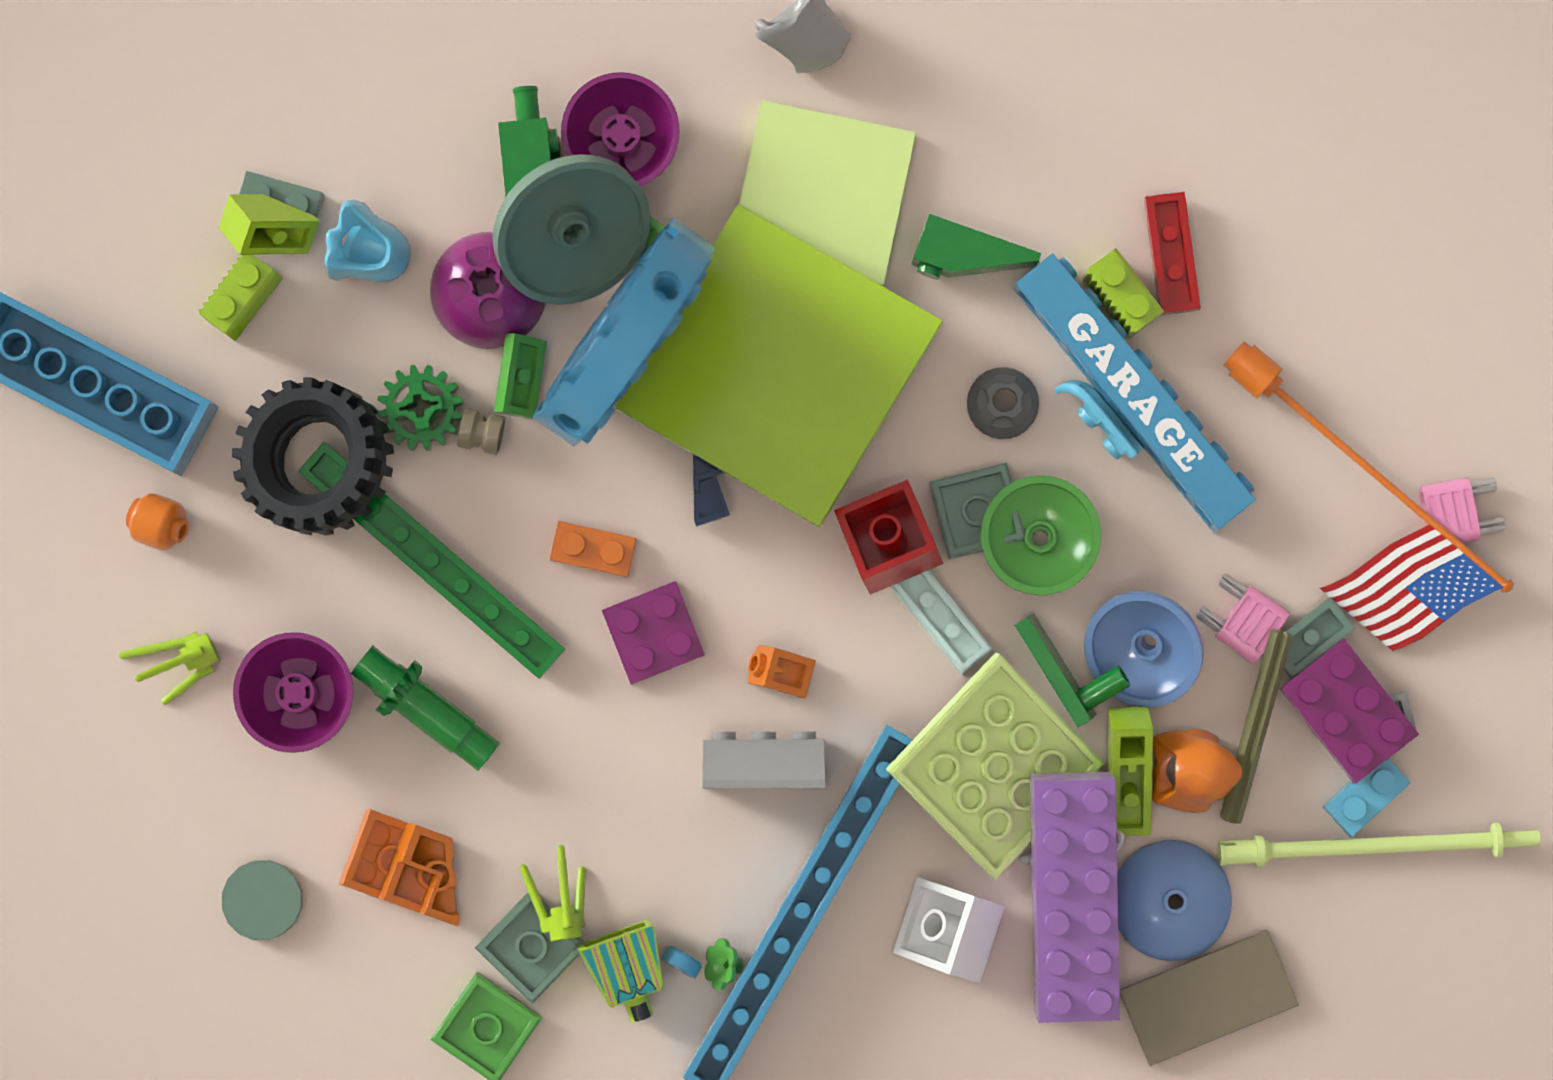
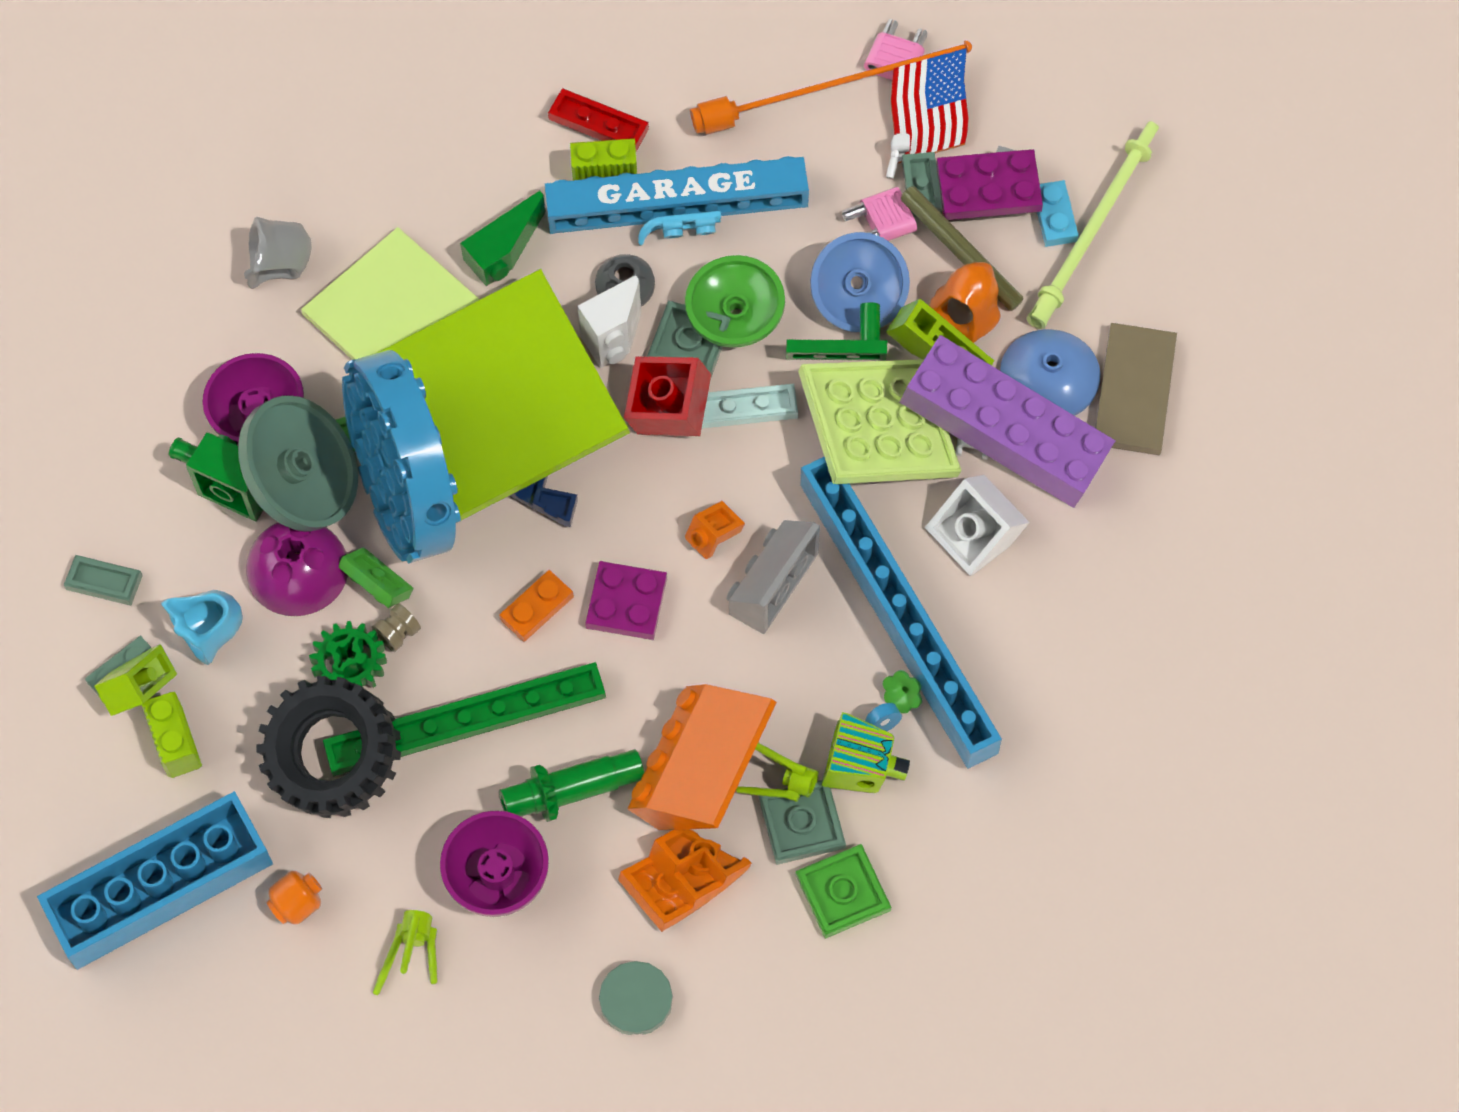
camera: 55 degrees left, 20 degrees down
(357, 113) = (103, 580): none -> sand green tile
(517, 821) = (700, 758): none -> orange slope
(935, 428) = (611, 321): none -> white slope
(1343, 585) = (899, 143): none -> white hand

